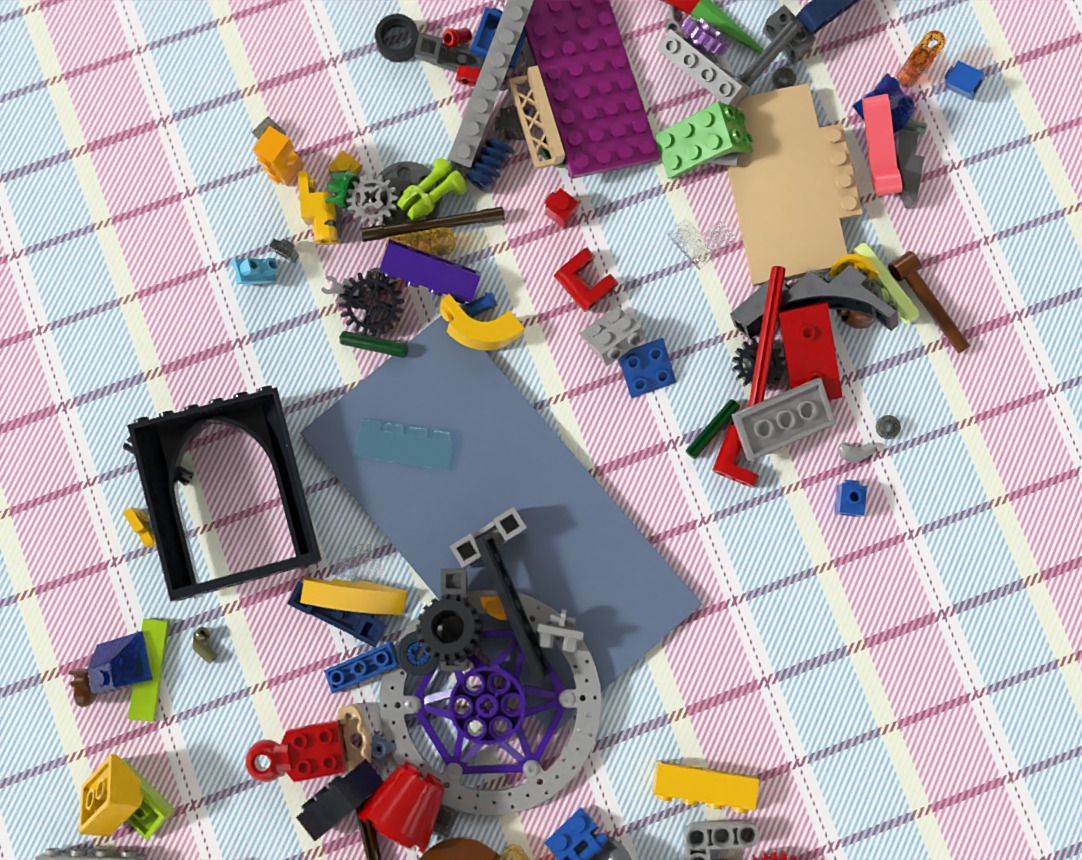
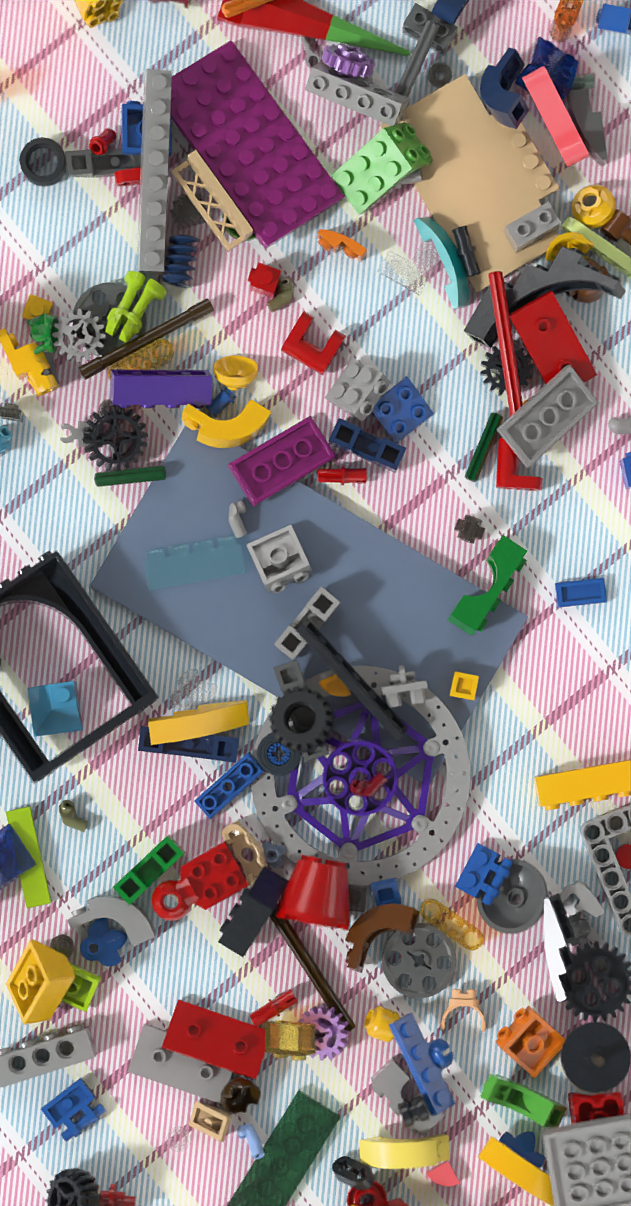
camera: 20 degrees left, 5 degrees up
(147, 768) = (63, 945): none -> clear smoke plate
(192, 778) = (107, 943): none -> blue plate
(217, 753) = (131, 917): none -> light grey arch
(226, 537) = (55, 708): none -> dark azure slope
(255, 722) = (148, 869): none -> green arch
(456, 416) = (235, 519): none -> light grey arm
(475, 825) = (386, 892): none -> blue plate
(484, 468) = (279, 559): none -> light grey plate
(491, 718) = (368, 788): none -> dark red arm
(504, 281) = (235, 371): none -> yellow piece
(518, 377) = (281, 461): none -> magenta plate
(571, 410) = (342, 475): none -> red axle
(574, 228) = (284, 295): none -> olive arm
(610, 397) = (366, 446): none -> dark blue arch
(618, 649) = (464, 686): none -> yellow plate
(637, 194) = (334, 241): none -> orange slope
(651, 579) = (503, 561): none -> green arch
(674, 501) = (469, 529): none -> clear smoke gear
(738, 274) = (458, 288): none -> teal slope
(756, 242) = (466, 251): none -> black pin
(760, 597) = (580, 592): none -> blue tile
(826, 239) = (532, 227): none -> light grey brick
(836, 117) = (495, 84): none -> dark blue arch
(892, 248) = (600, 212): none -> yellow piece

